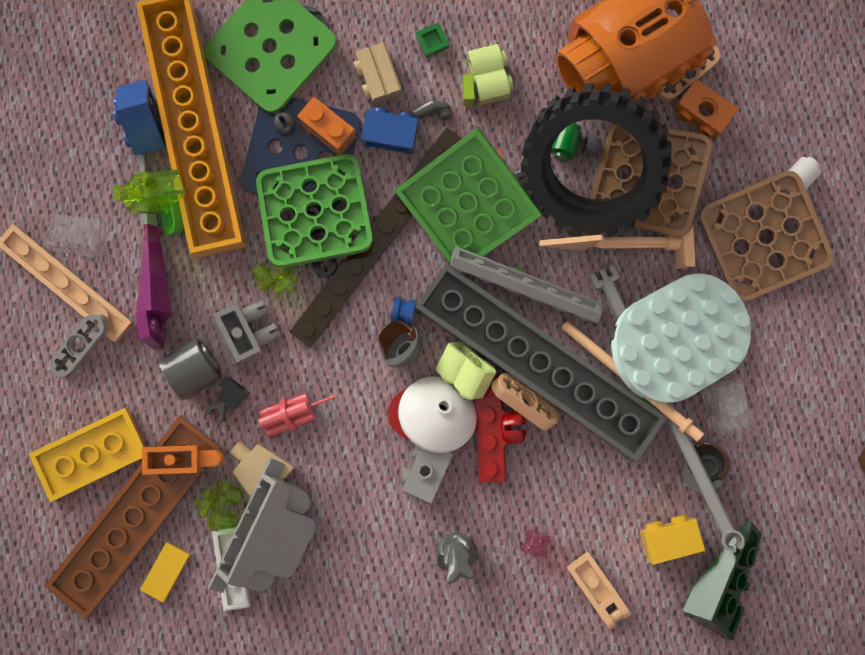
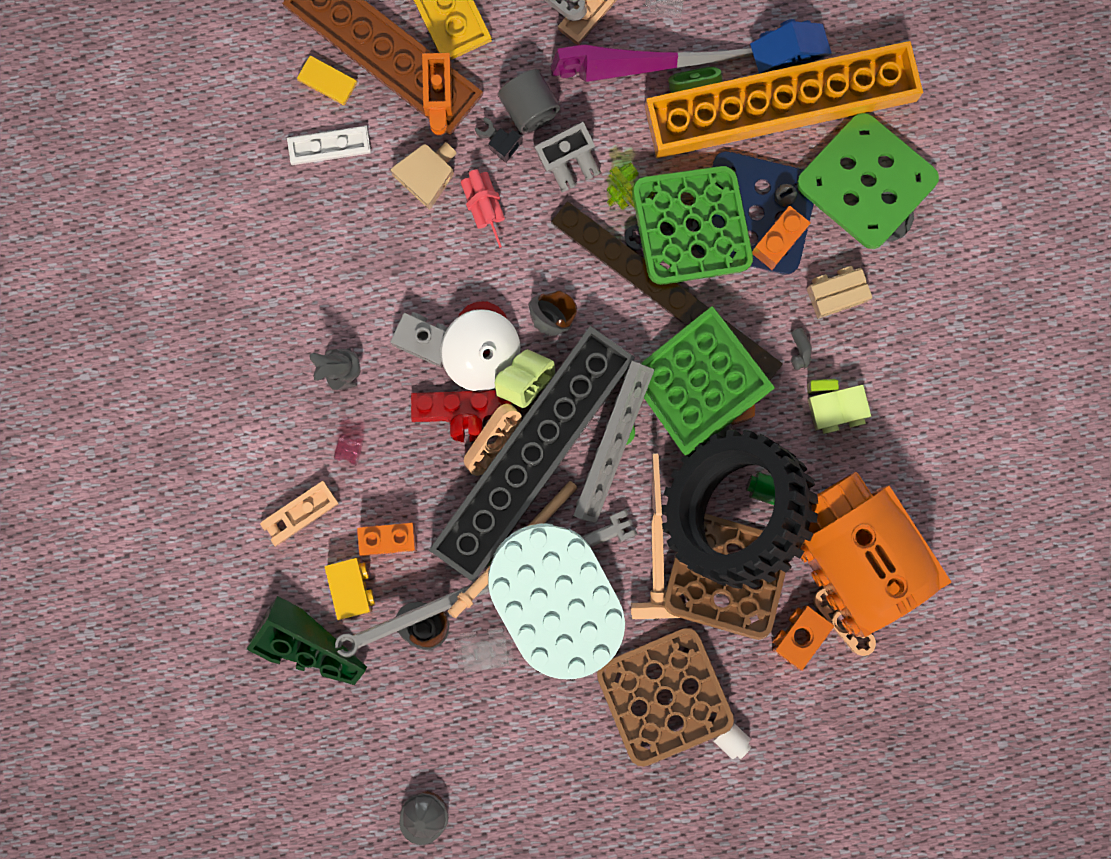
camera: 85 degrees right, 0 degrees up
(150, 192) = (709, 57): clear neon green torso -> none
(222, 494) = (379, 131): clear neon green hips -> none
(268, 536) = (360, 179): light grey brick -> none
(390, 130) = (778, 304): blue piece -> none
(403, 311) = (587, 316): blue wheel -> none
(432, 40) = (877, 349): green plate -> none
(593, 146) = (761, 516): dark grey hinge -> none
(623, 503) = (387, 539): none -> orange brick

